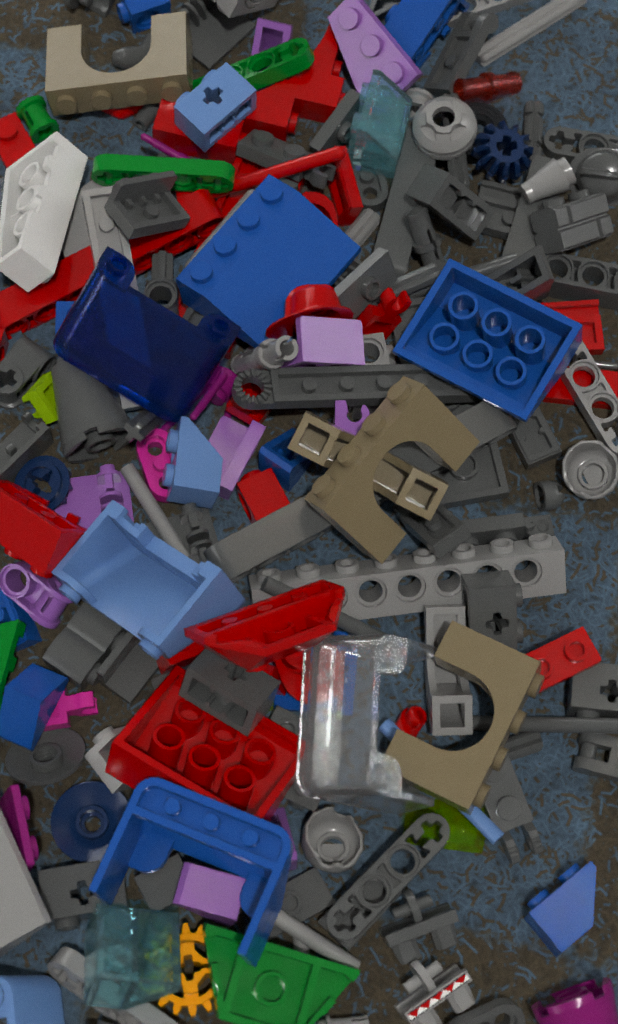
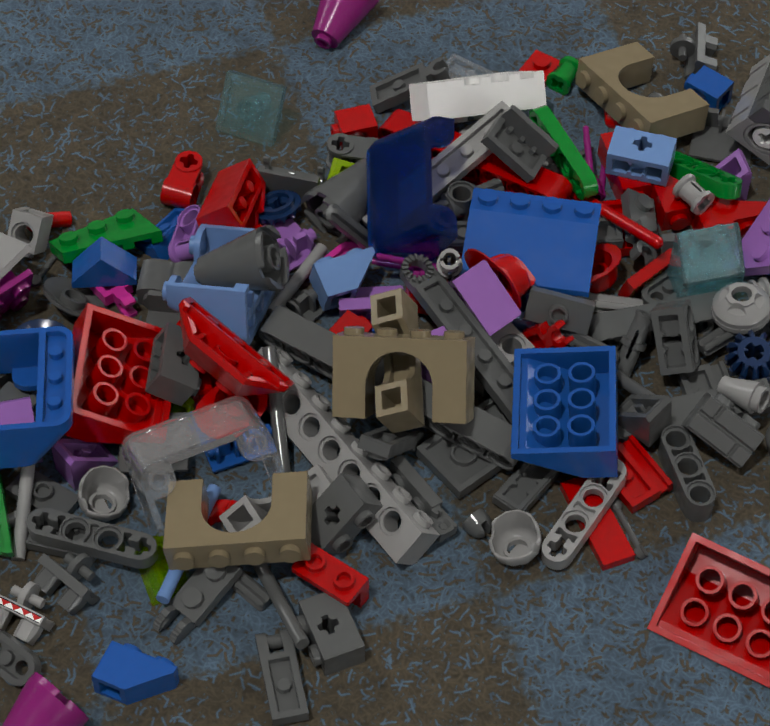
camera: 65 degrees right, 15 degrees down
(150, 554) = (246, 260): none -> dark grey cone
(289, 89) = (693, 194): none -> light grey bush

